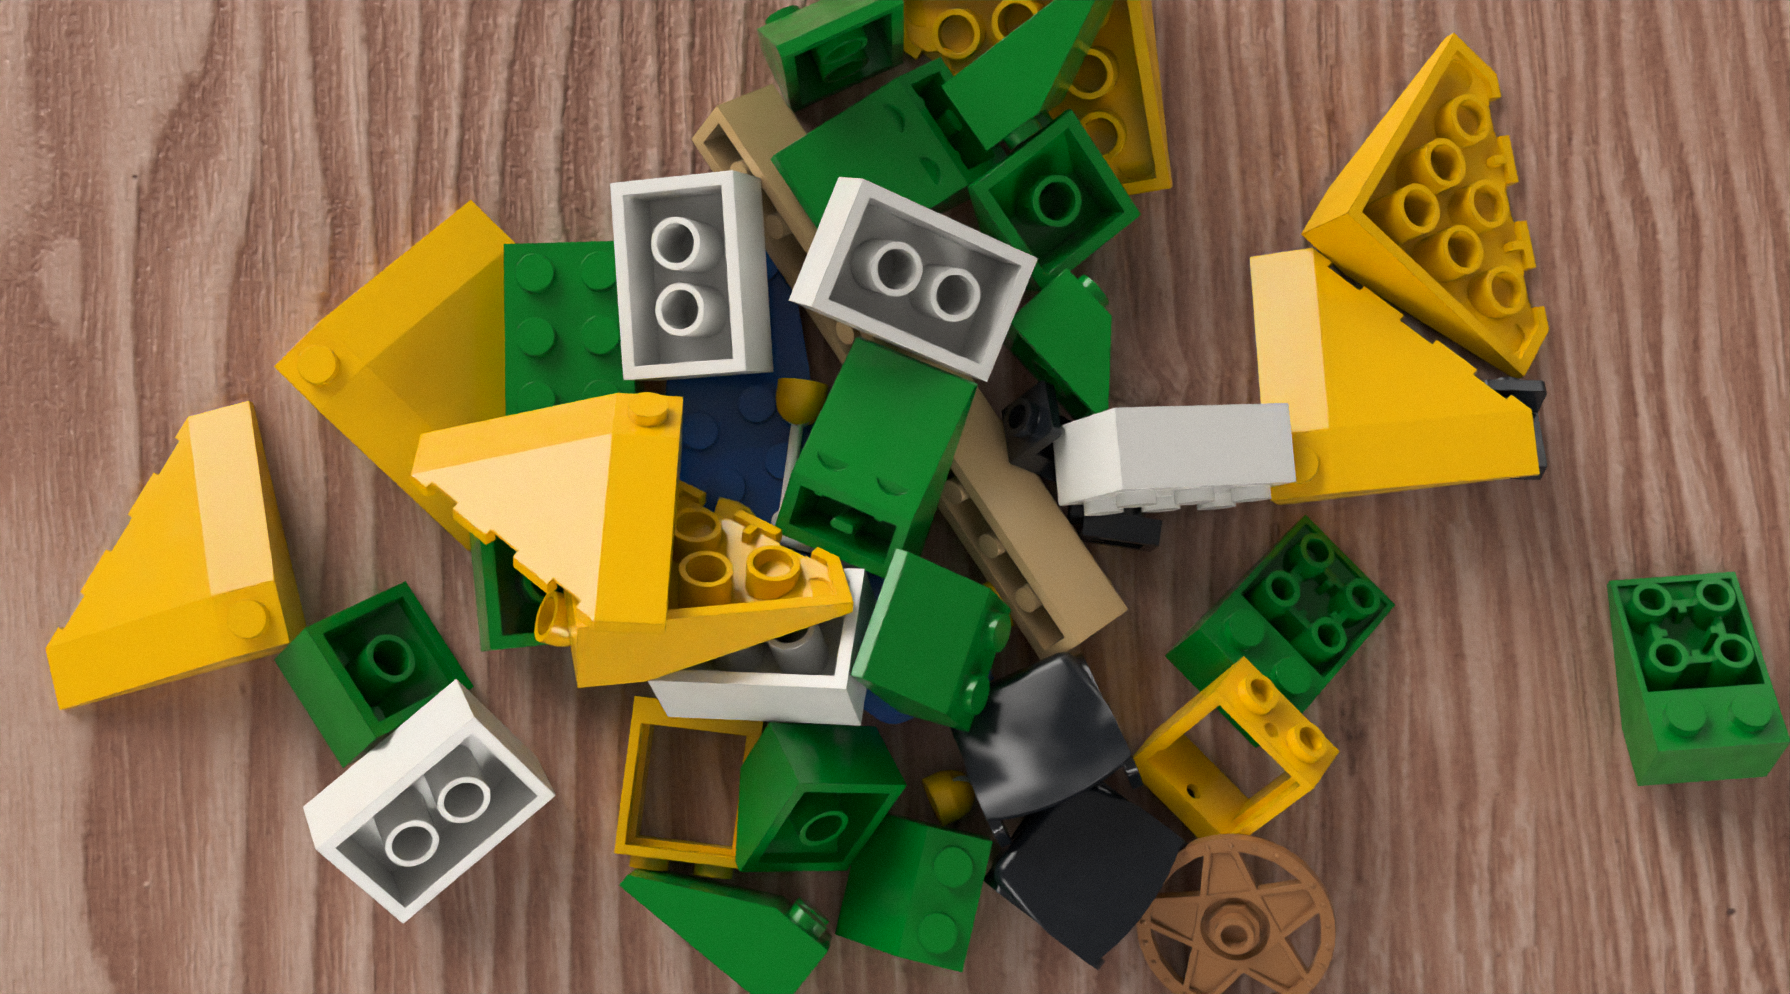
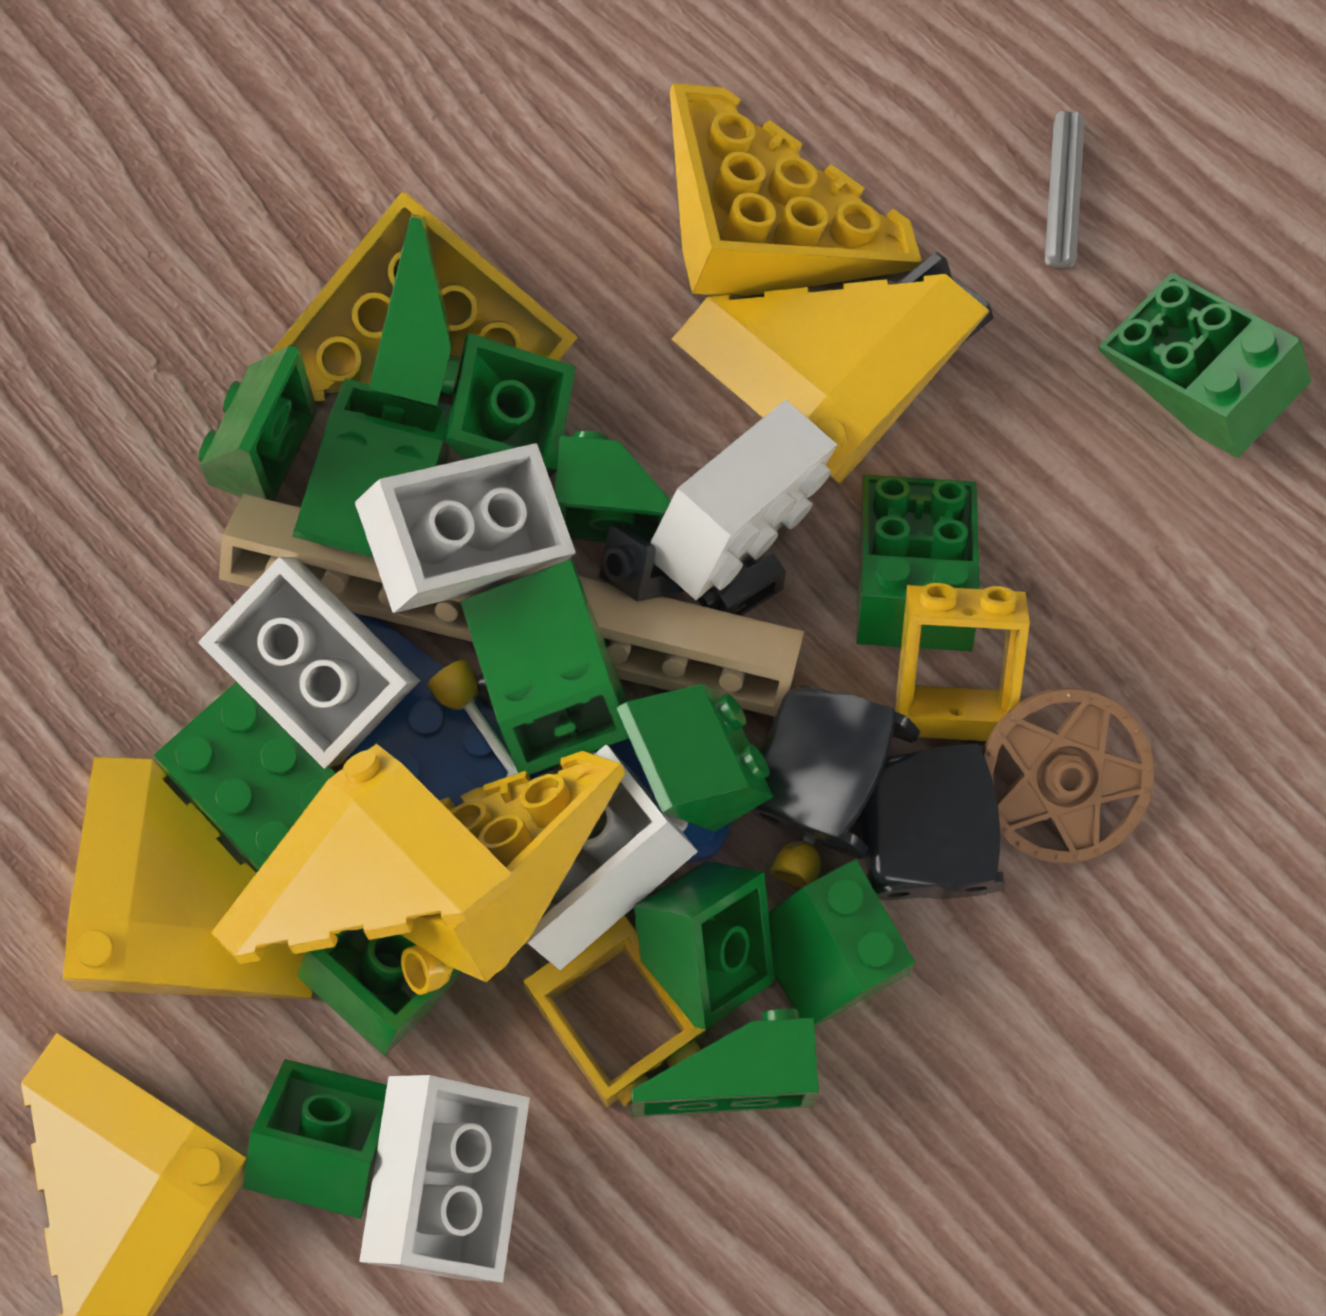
camera: 45 degrees left, 10 degrees down
(1709, 419) = (1065, 190): none -> light grey axle

